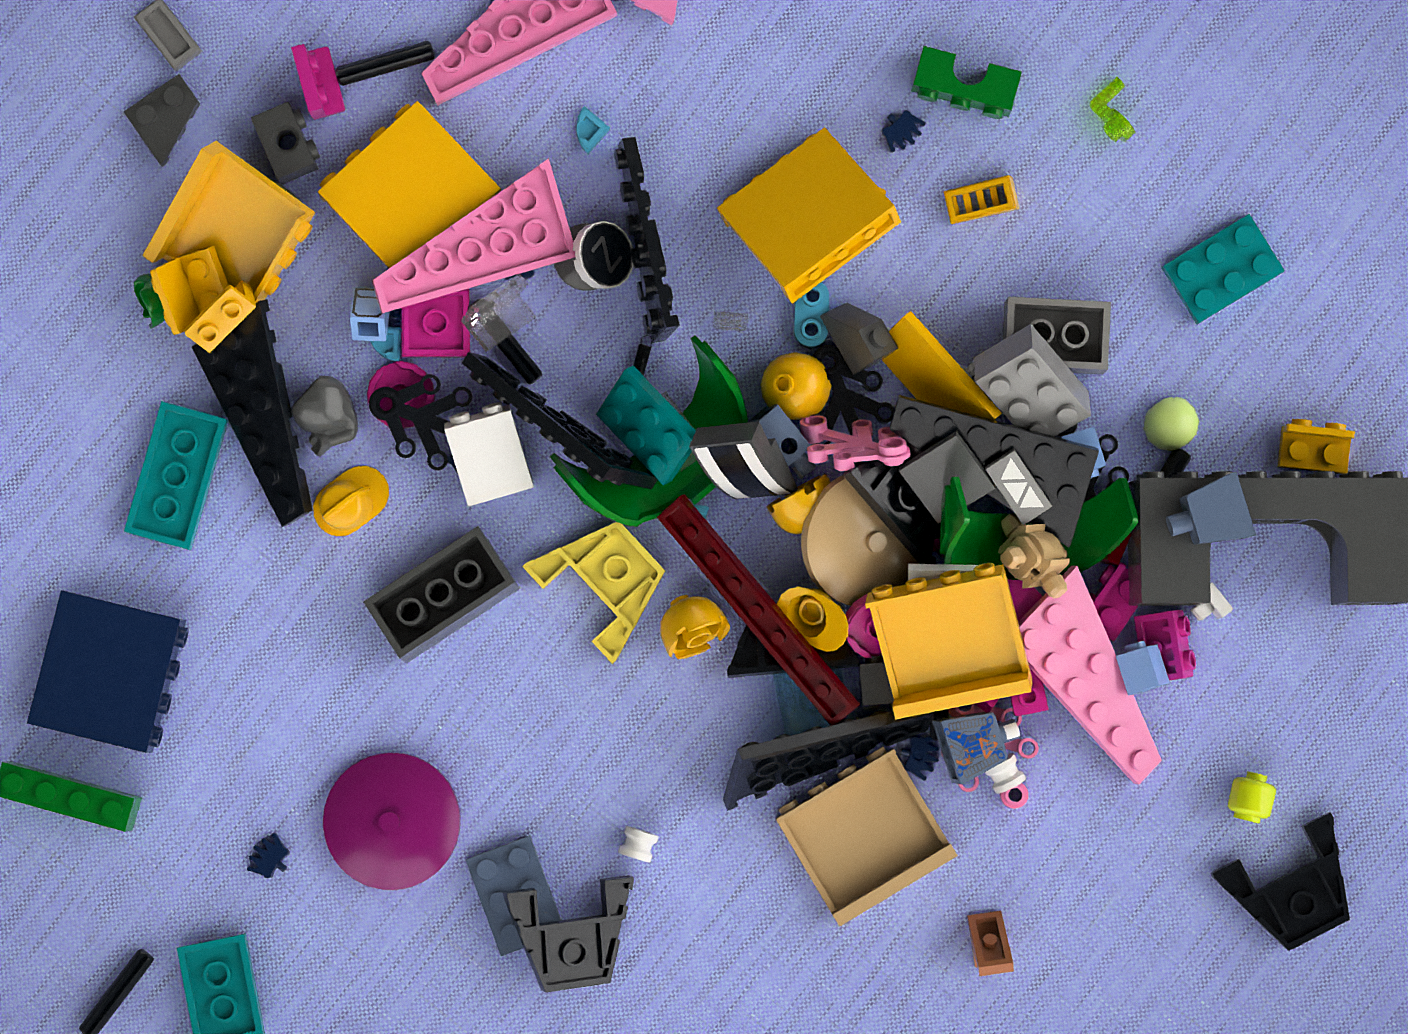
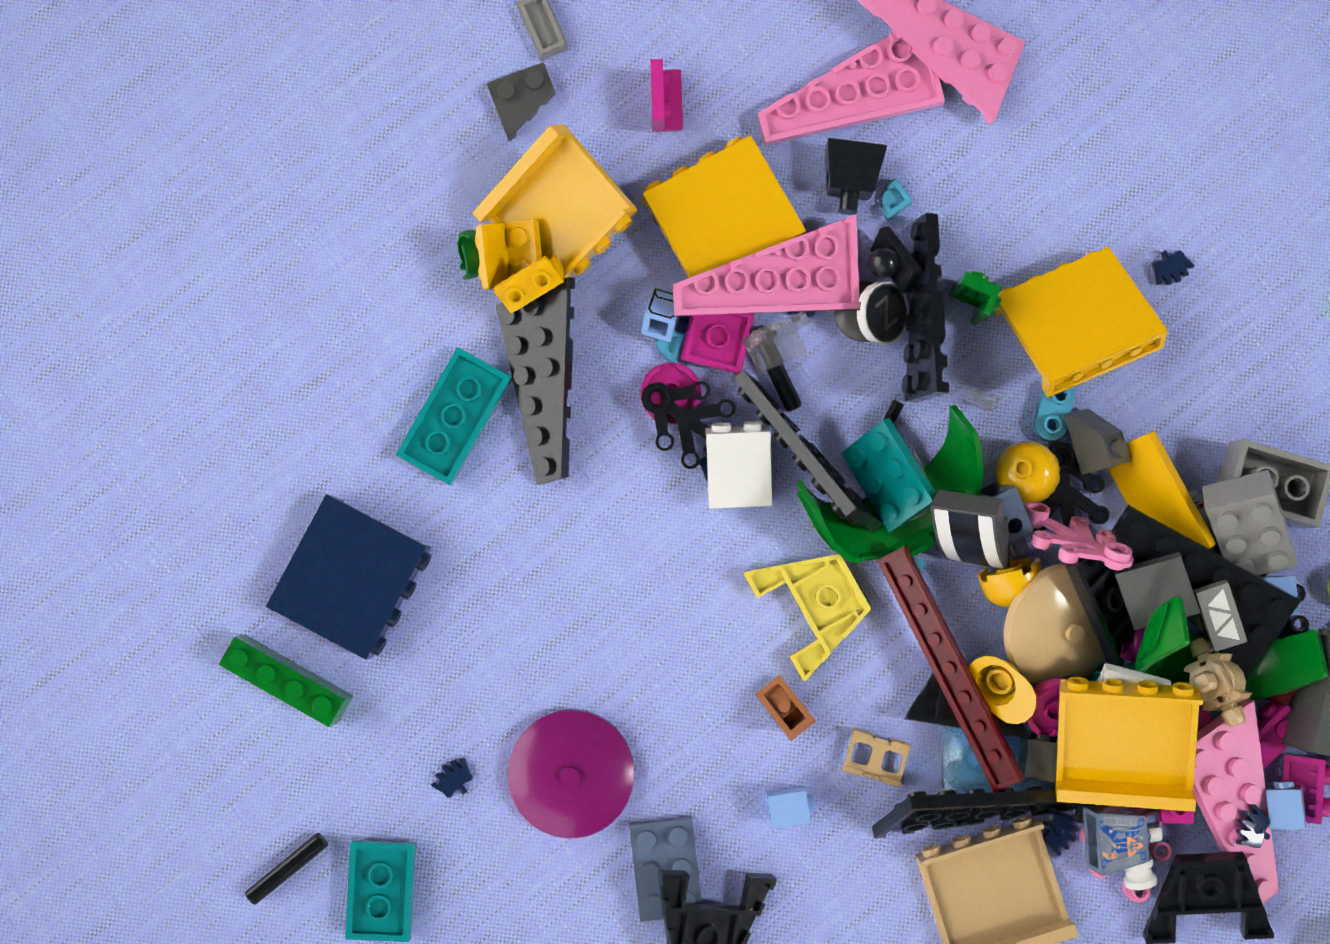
camera: 10 degrees right, 0 degrees up
(271, 128) = (624, 126): dark grey brick -> none
(326, 413) = (601, 393): dark grey piece -> none
(351, 500) = (603, 476): yellow piece -> none
(385, 63) = (727, 97): black axle -> none
(441, 595) = (665, 582): dark grey brick -> none
(537, 111) = (852, 171): none -> black torso
(597, 695) = (785, 707): none -> nougat slope
(599, 197) = (893, 260): none -> black tile
(628, 798) = (789, 807): none -> light blue brick
(638, 844) = (788, 851): white wheel -> none
(692, 207) = (979, 292): none -> green bracket
(692, 624) = (883, 664): yellow cylinder -> none
(708, 736) = (879, 747): none -> tan piece
(937, 80) = (1217, 230): green arch -> none
(992, 184) = (1256, 346): yellow slope -> none
(1081, 769) = (1208, 886): none -> black wing
(1110, 698) = (1254, 828): none -> dark blue piece

